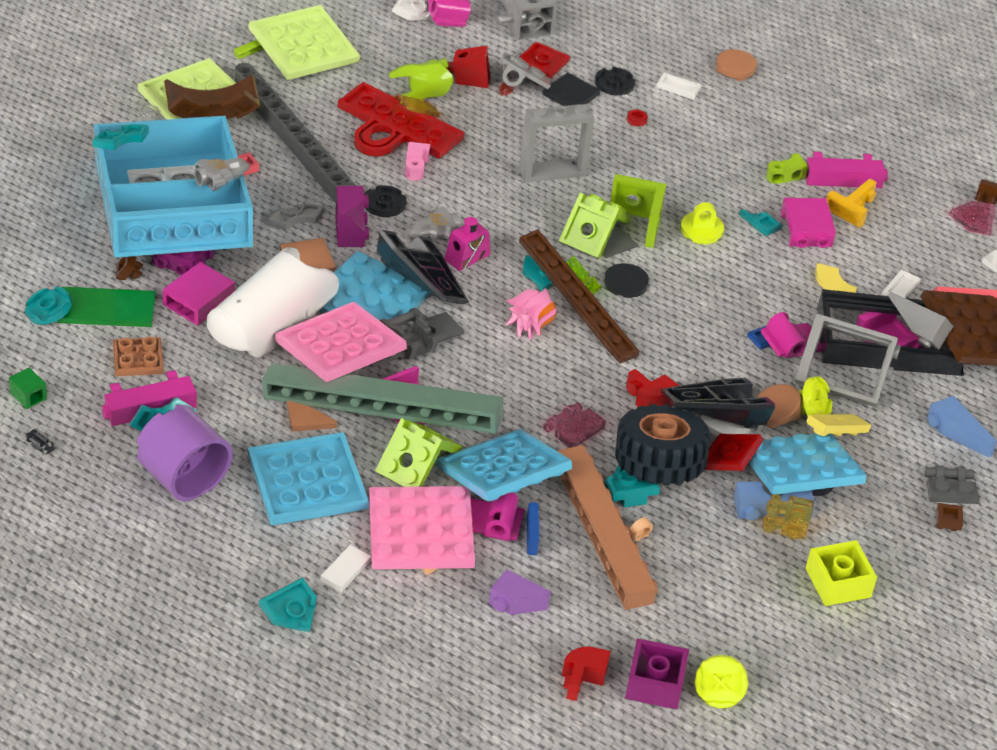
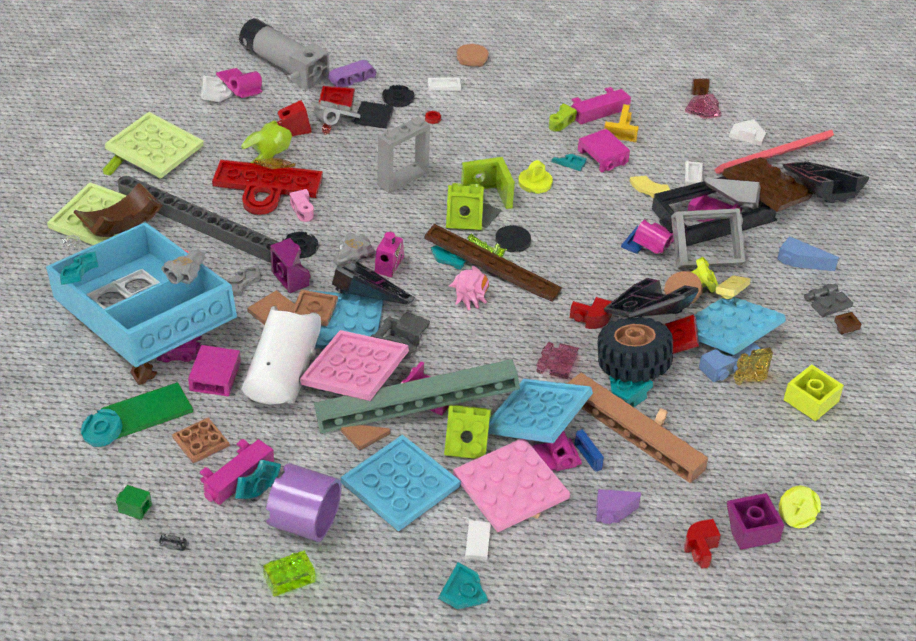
camera: 25 degrees left, 0 degrees up
(127, 517) = (289, 573): none -> clear neon green brick
(349, 268) = (316, 302): none -> nougat tile
(578, 38) = (351, 73): none -> medium lavender beam

